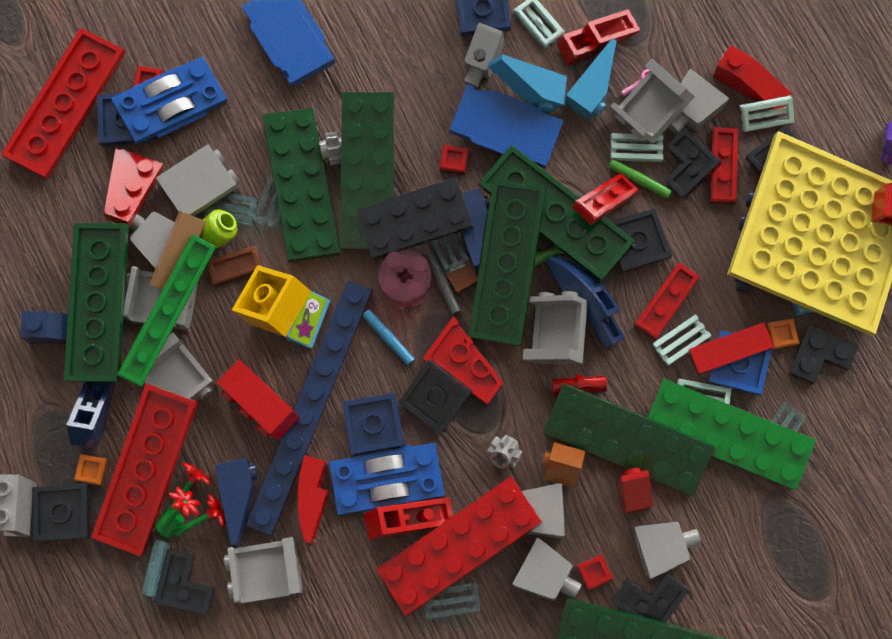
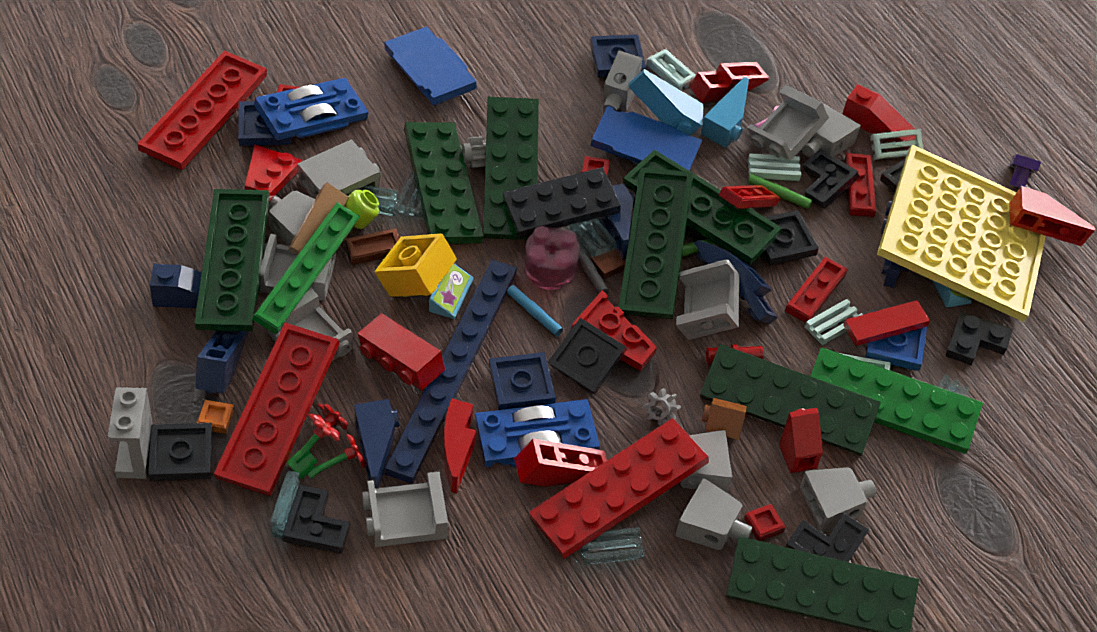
camera: 10 degrees left, 25 degrees down
(783, 333) = (939, 320): orange tile -> none

